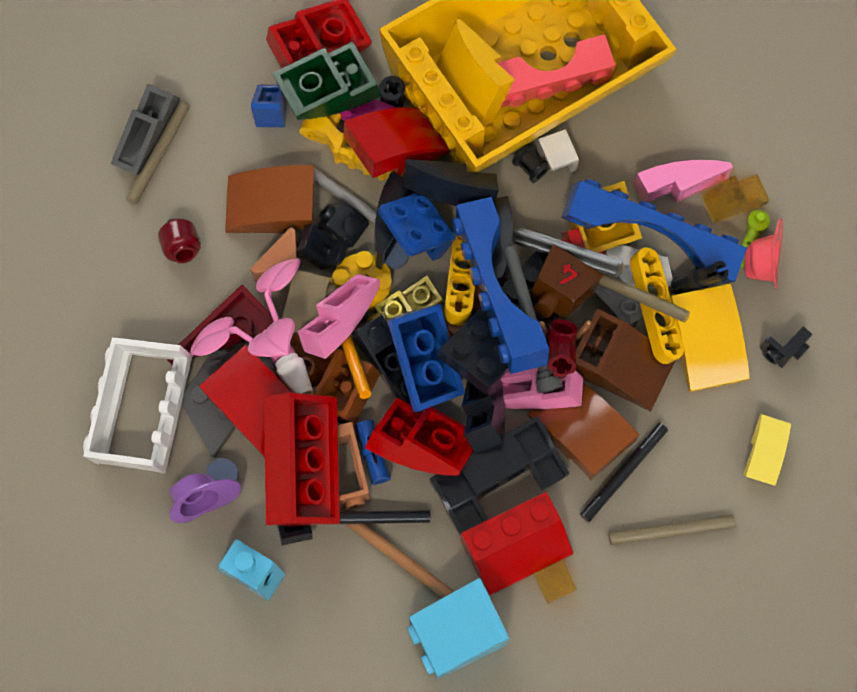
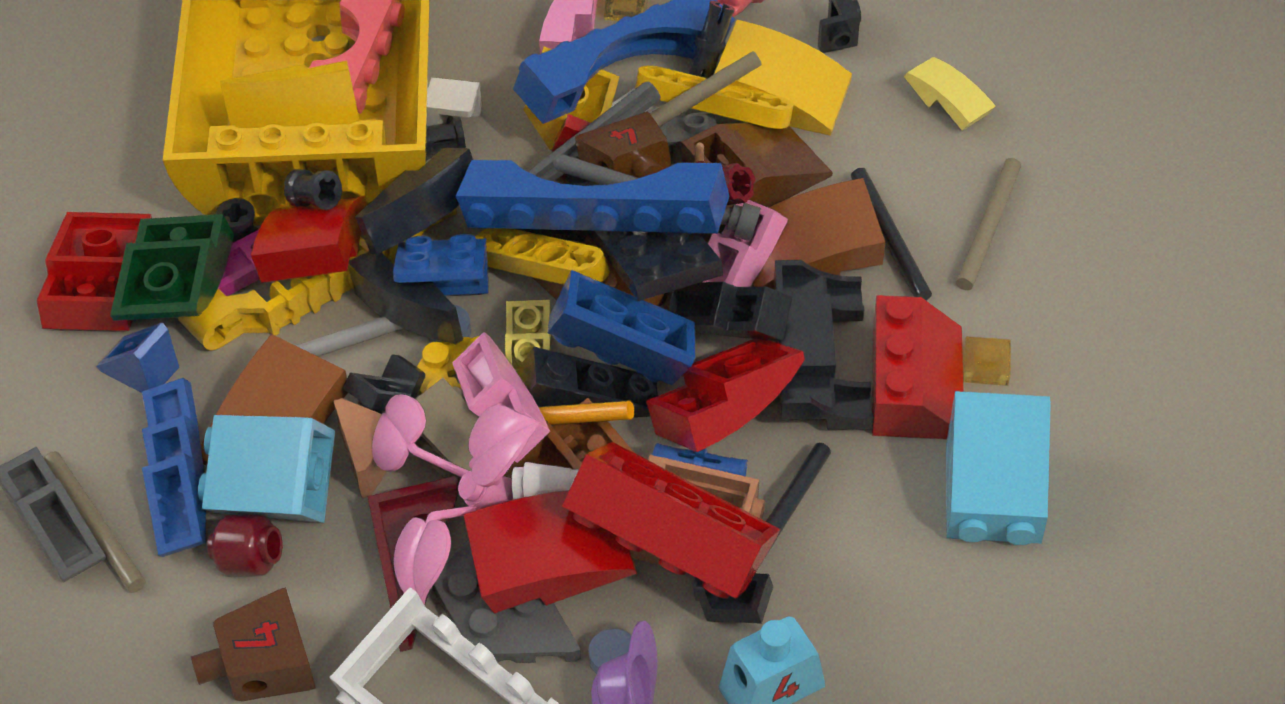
camera: 60 degrees left, 20 degrees down
(121, 289) = (258, 651): none -> reddish brown torso
(205, 175) = (173, 467): none -> blue slope
(223, 223) = (267, 467): none -> medium azure slope
(342, 222) = (364, 352): black bracket -> none
(401, 559) = (861, 504): medium nougat bar -> none
(416, 125) = (319, 189): none -> black bush

